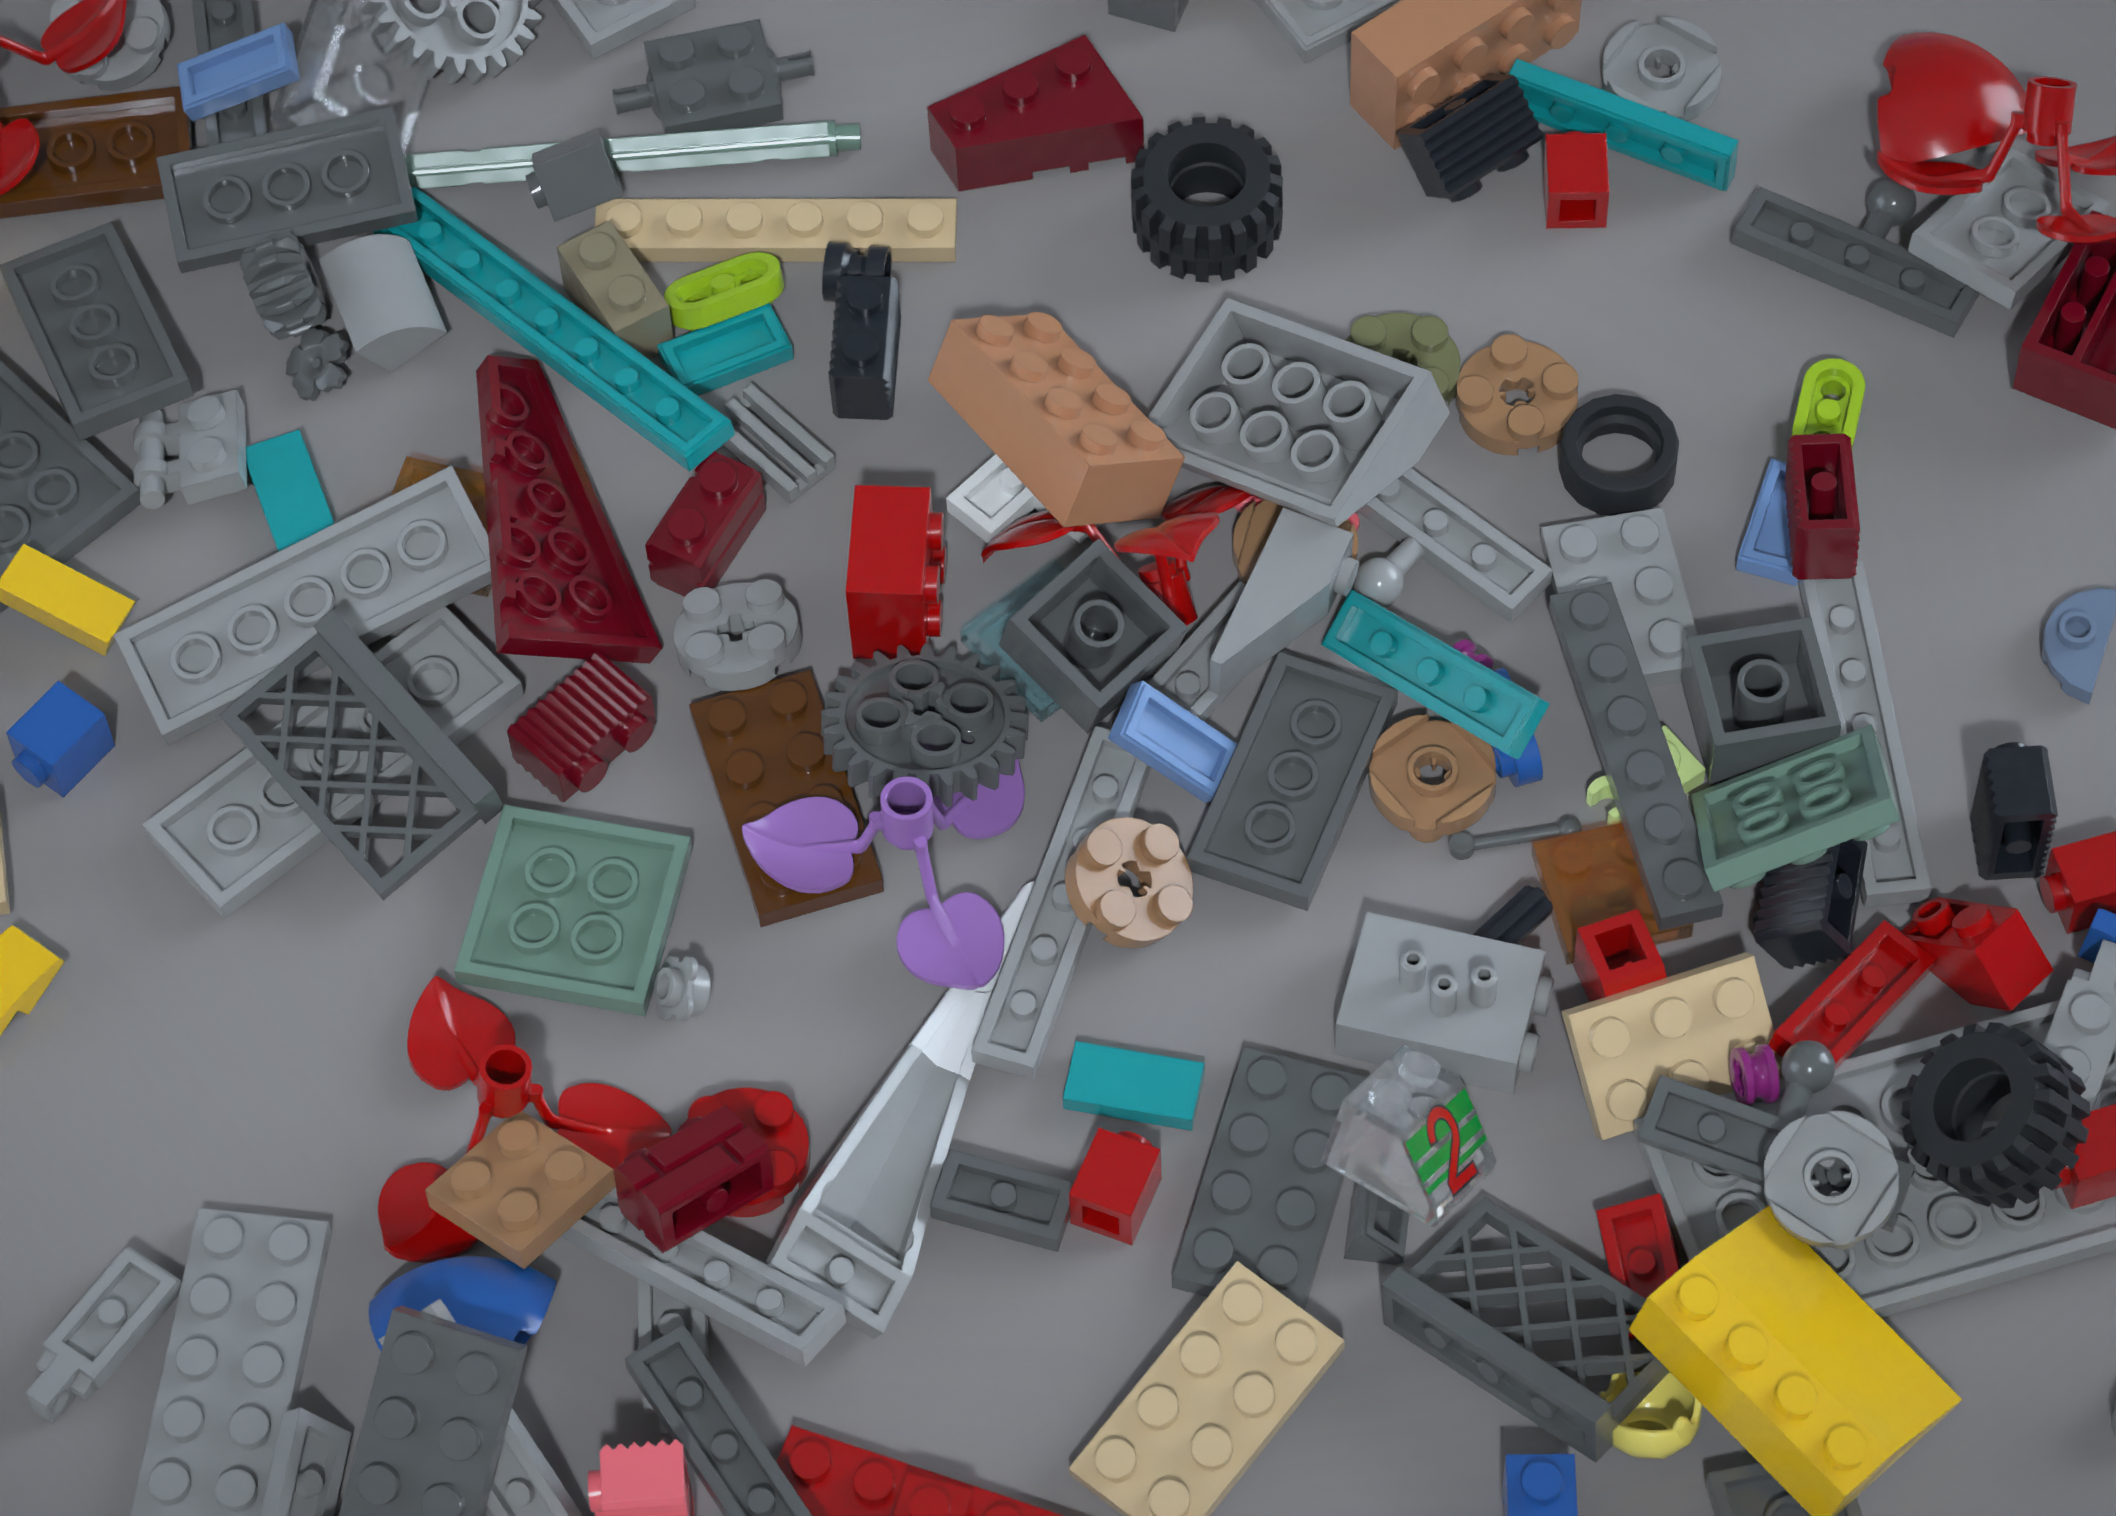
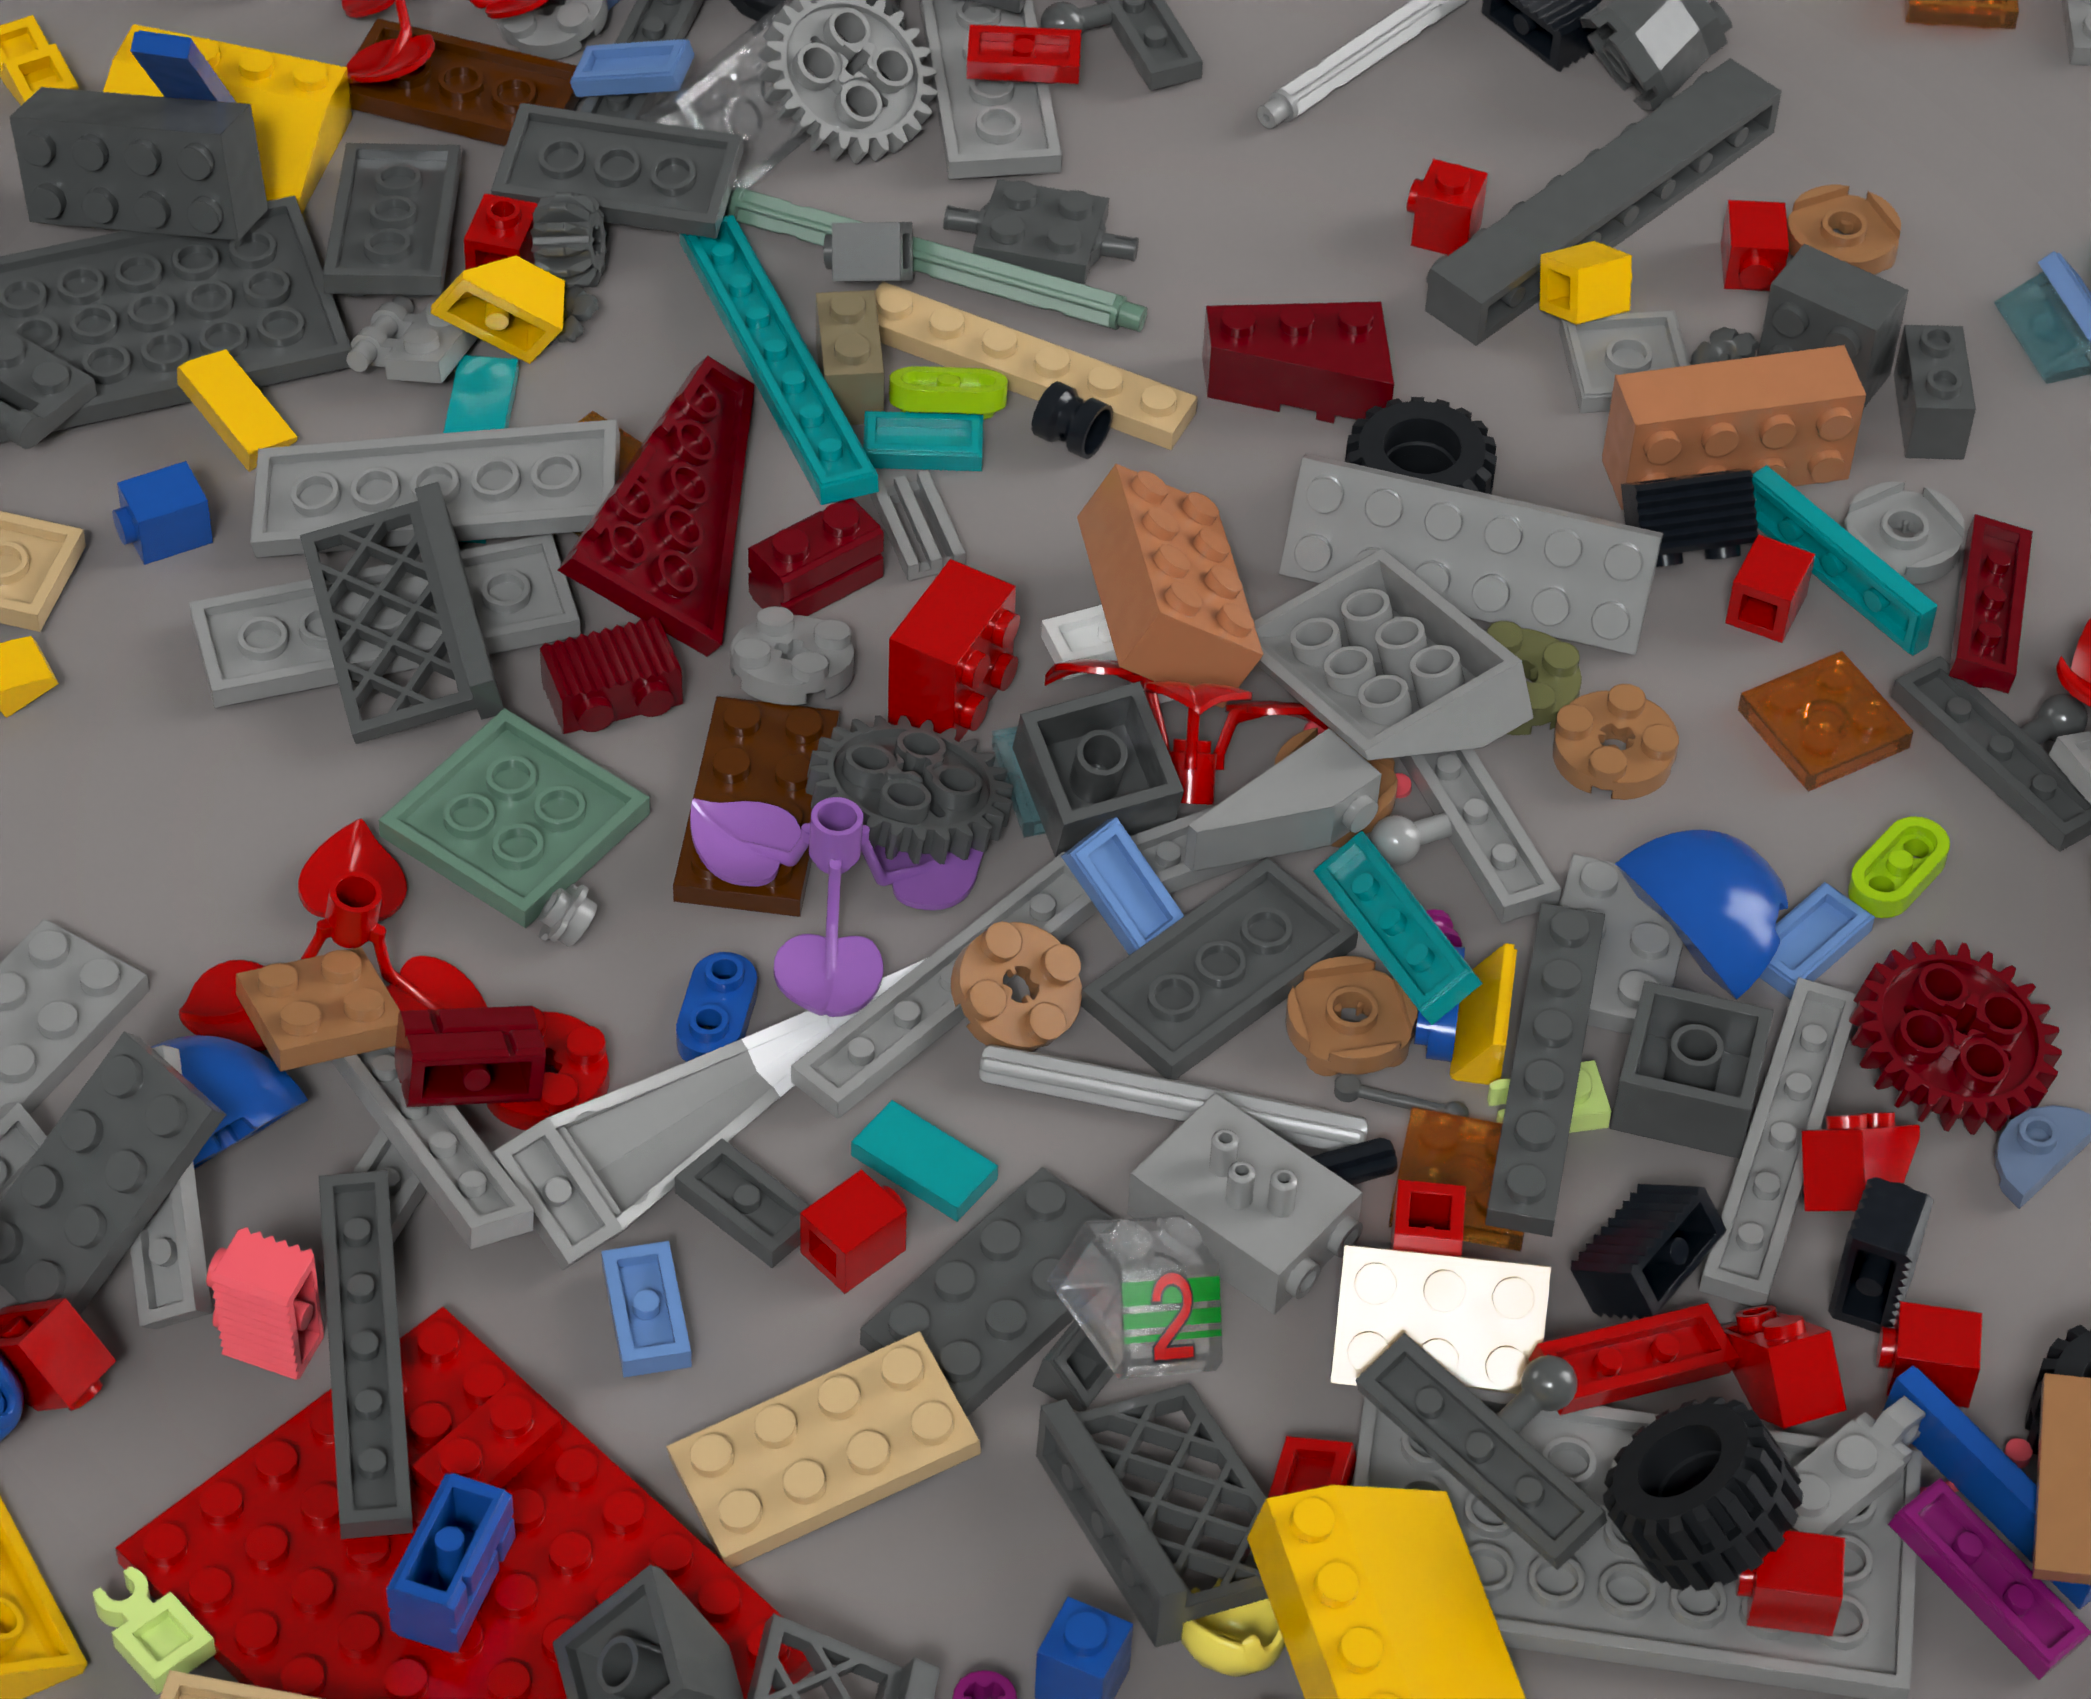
camera: 20 degrees right, 10 degrees down
(213, 310) = (499, 231): none -> red brick
(269, 382) = (506, 306): none -> yellow slope
(383, 298) = (648, 284): light grey brick -> none
(864, 1016) = (718, 996): none -> blue plate
(865, 347) = (1042, 477): black brick -> none
(973, 1344) = (646, 1309): none -> medium blue plate
(1303, 261) = (1477, 551): none -> light grey plate
(1314, 927) = (1162, 1096): none -> light grey axle
(1560, 734) = (1485, 1020): none -> yellow slope
(1623, 416) = (1680, 787): black tyre -> none
(1687, 293) = (1825, 721): none -> clear orange plate
(1698, 523) = (1715, 898): none -> blue brick
(1754, 1075) = (1498, 1374): magenta bush -> none
(1779, 115) = (1991, 604): none -> dark red plate
(1794, 809) = (1661, 1161): sand green plate -> none
(1822, 506) = (1838, 925): dark red brick -> none
(1822, 1141) = (1510, 1526): light grey plate -> none
(1944, 728) = (1850, 1153): none -> red slope
(1966, 550) = (1955, 1036): none -> dark red gear

